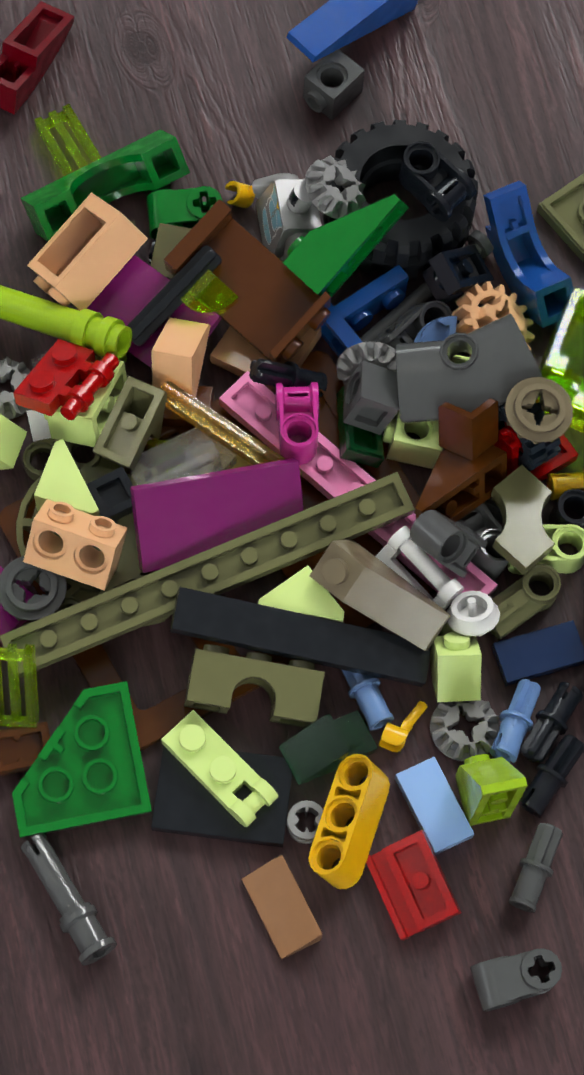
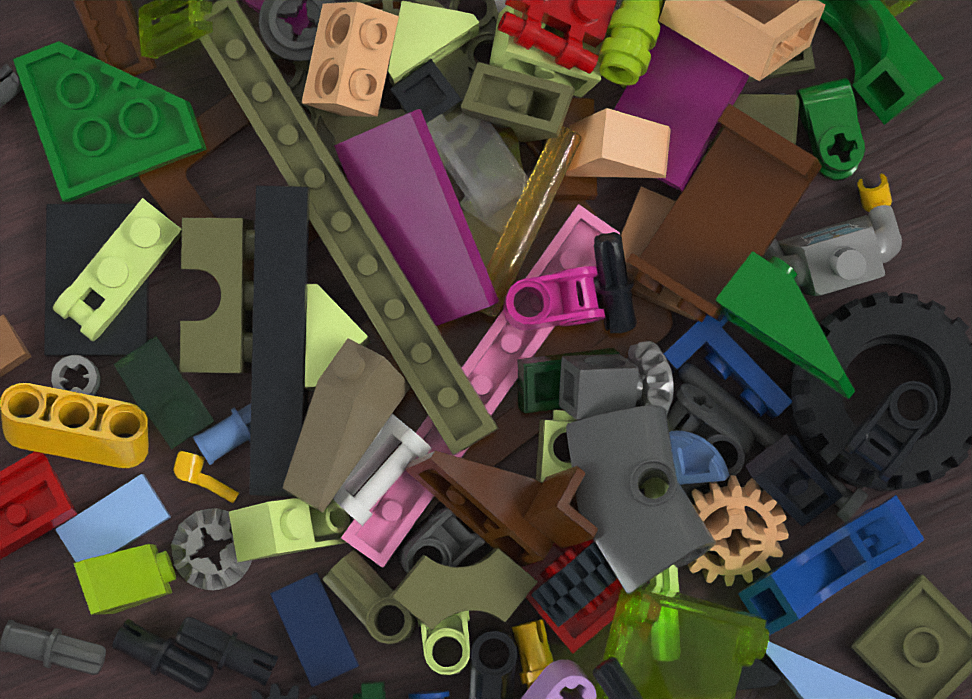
camera: 85 degrees right, 15 degrees up
(168, 299) = (694, 125): black axle -> none
(209, 294) = (698, 168): clear neon green tile -> none
(328, 198) = (841, 295): light grey gear -> none
(446, 540) = (408, 498): dark grey piece -> none
(473, 614) = (332, 540): white hat -> none
(516, 721) = (223, 608): medium blue axle -> none
(552, 399) = (565, 606): dark tan gear -> none

